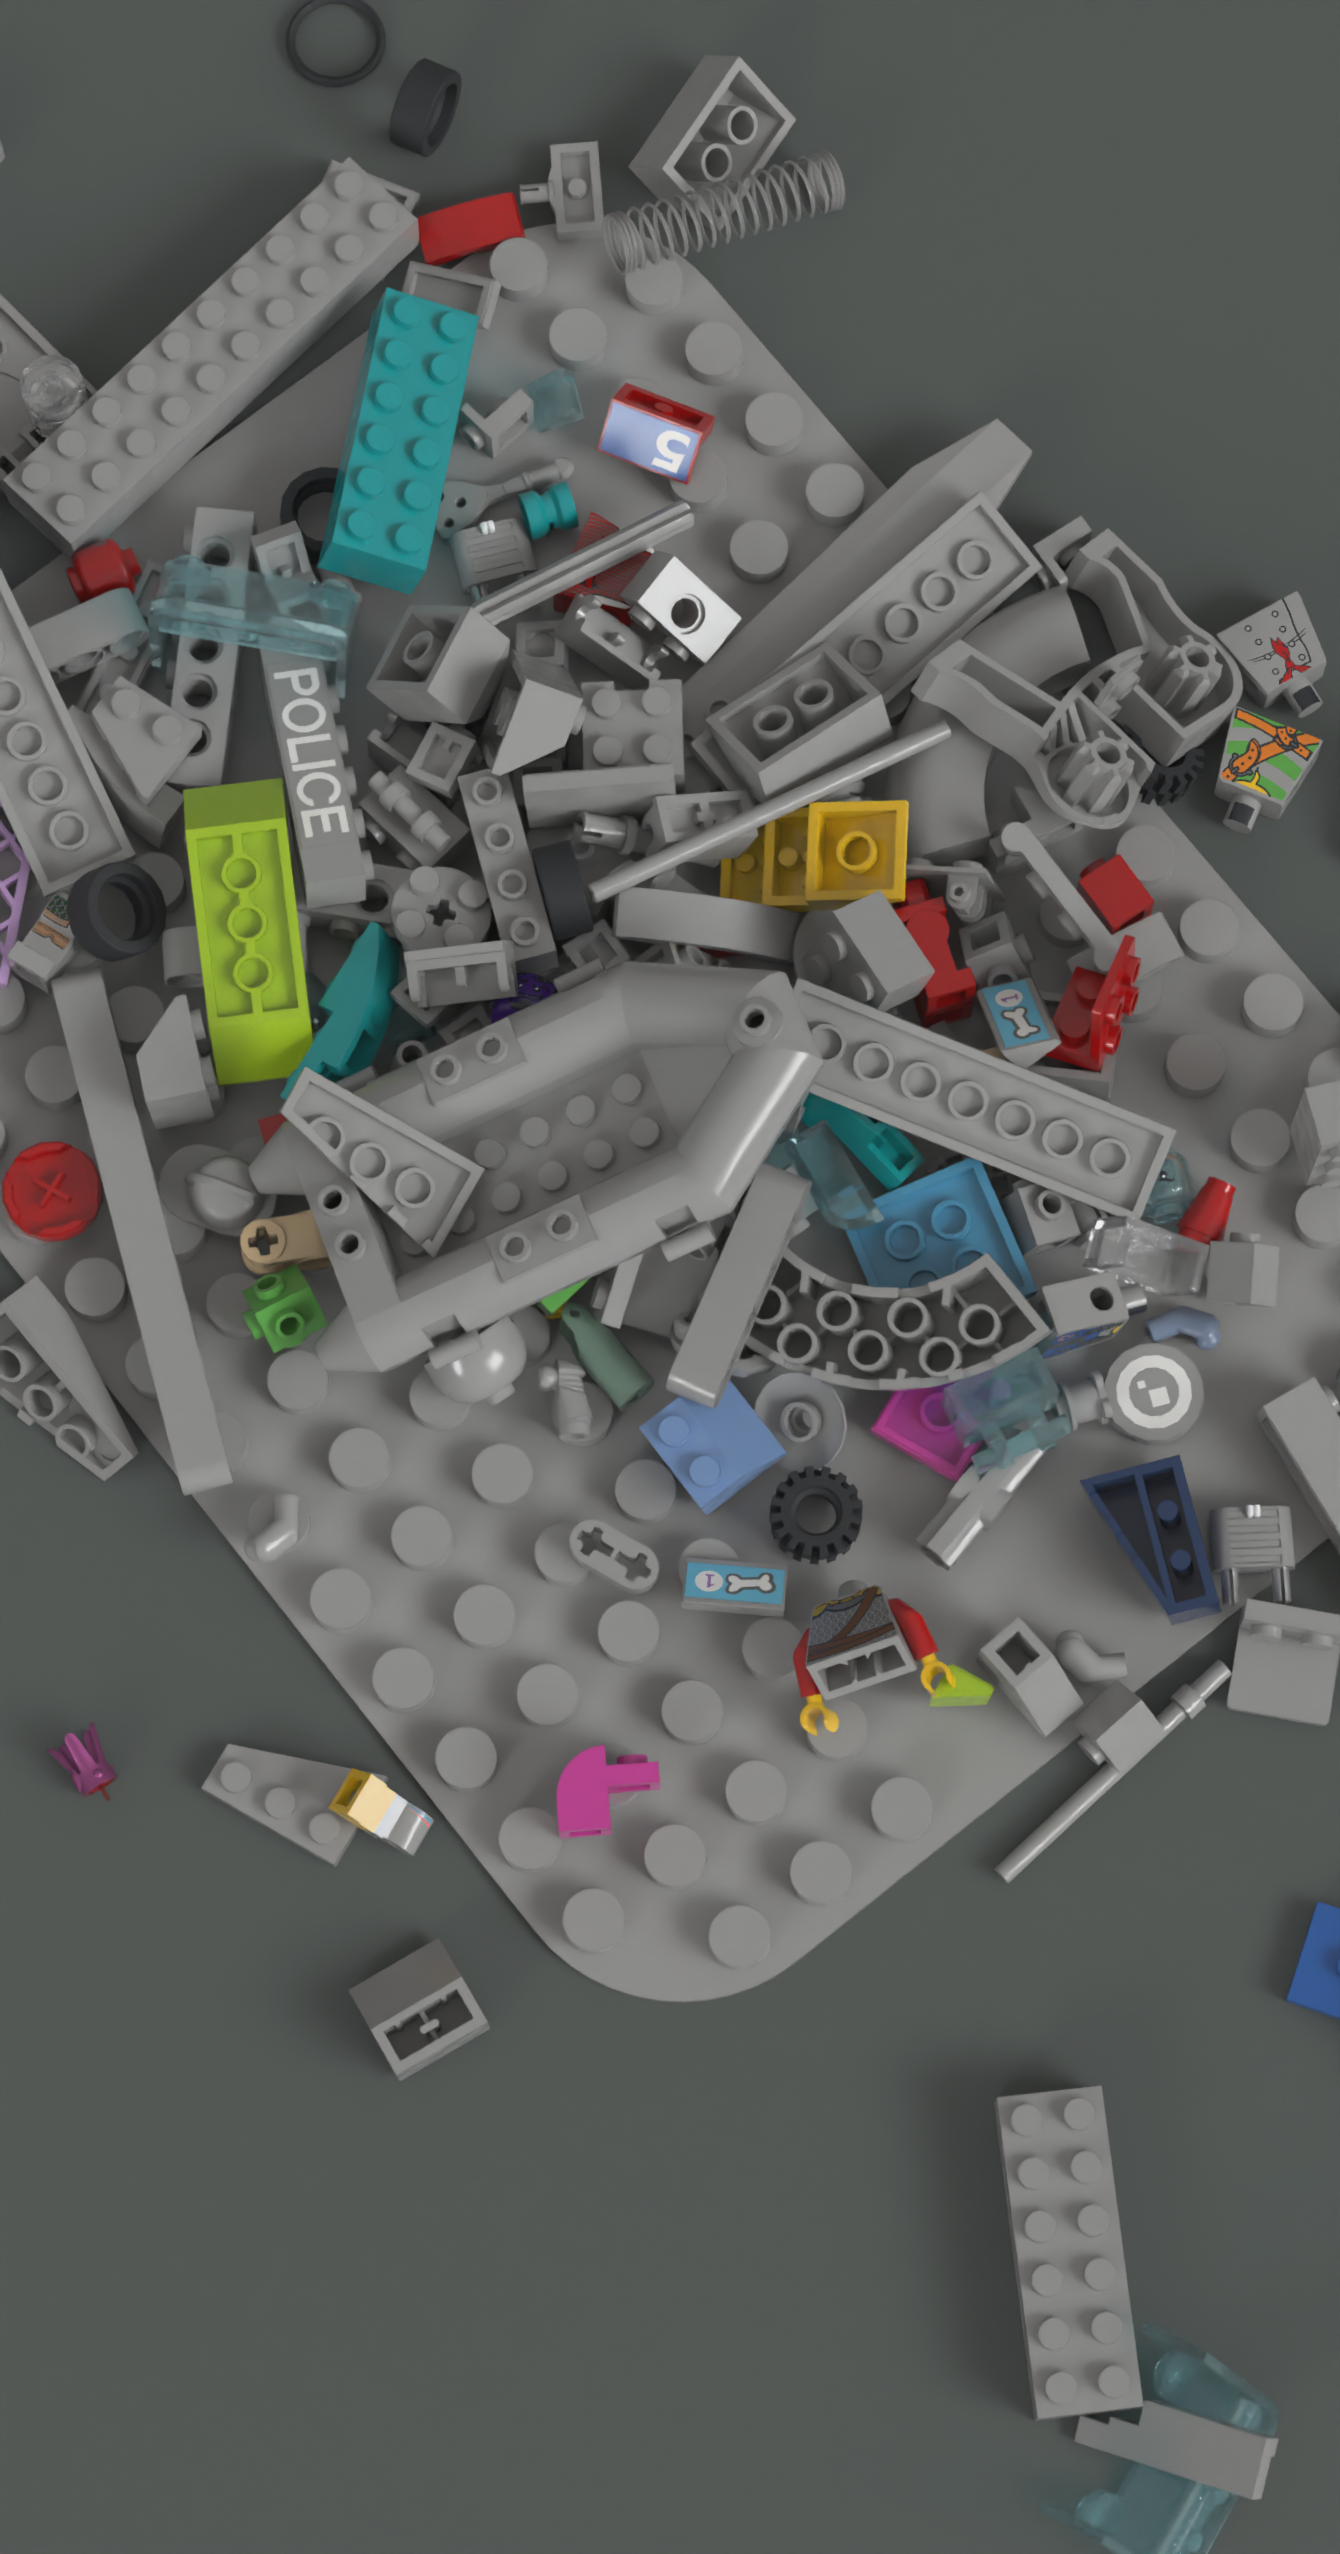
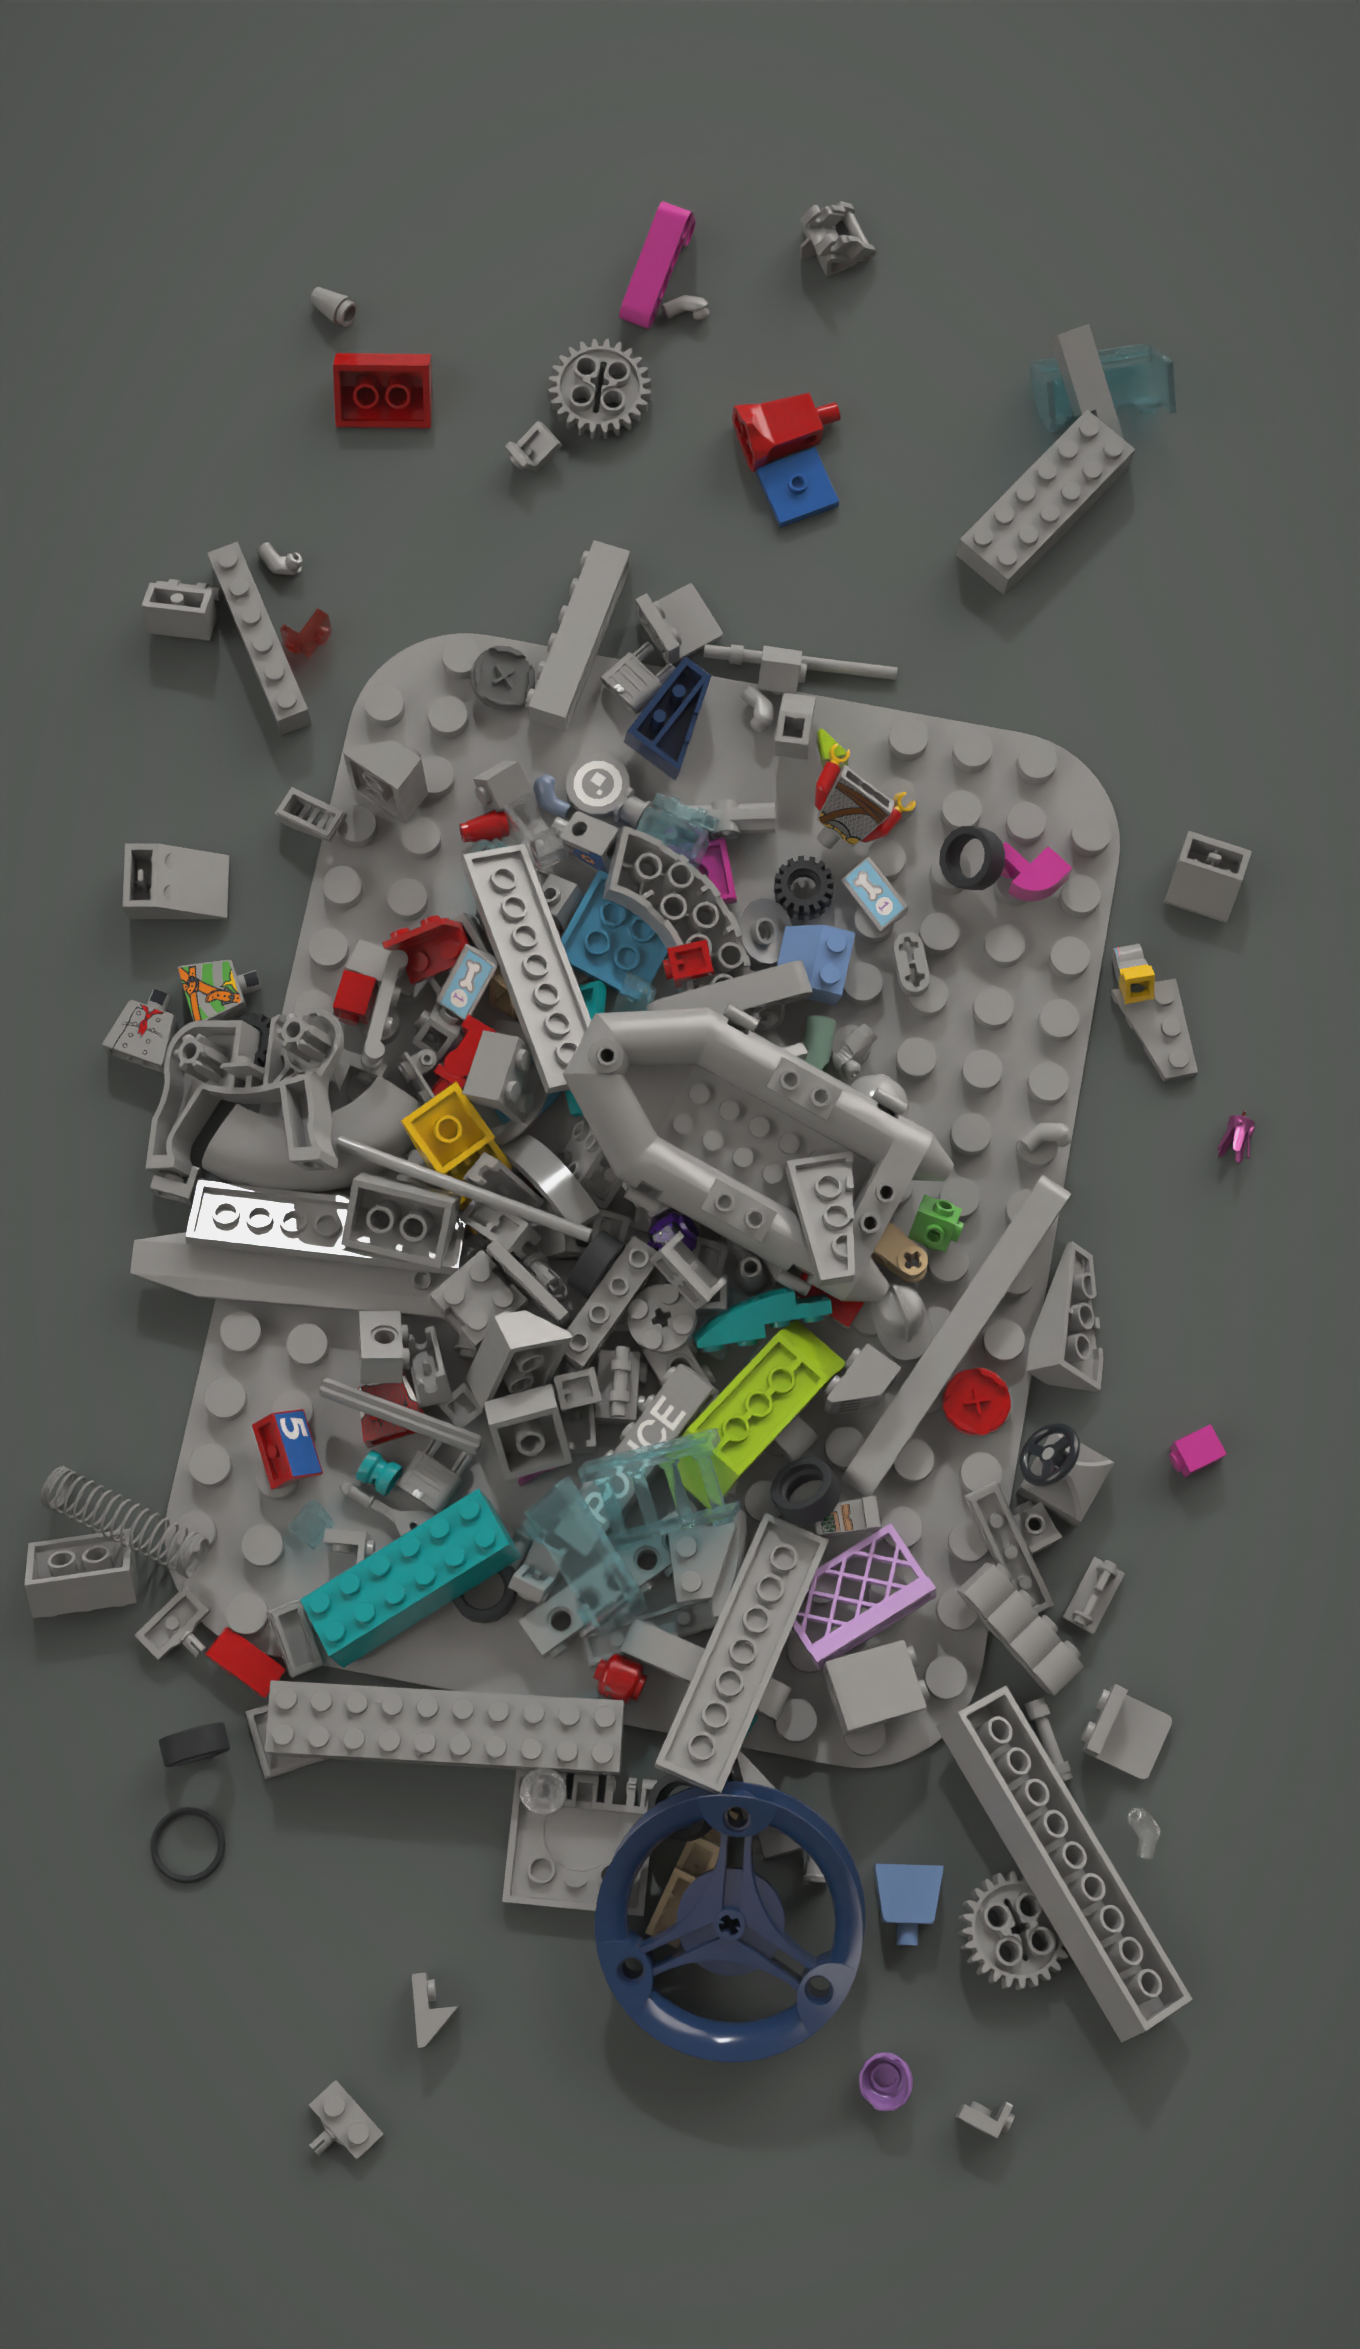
camera: 135 degrees left, 0 degrees up
(272, 773) = (667, 1456): none -> clear light blue fence
(662, 1750) = (993, 858): none -> black tyre
(749, 870) = (497, 1178): none -> light grey hinge
(823, 1275) = (688, 962): none -> red bracket

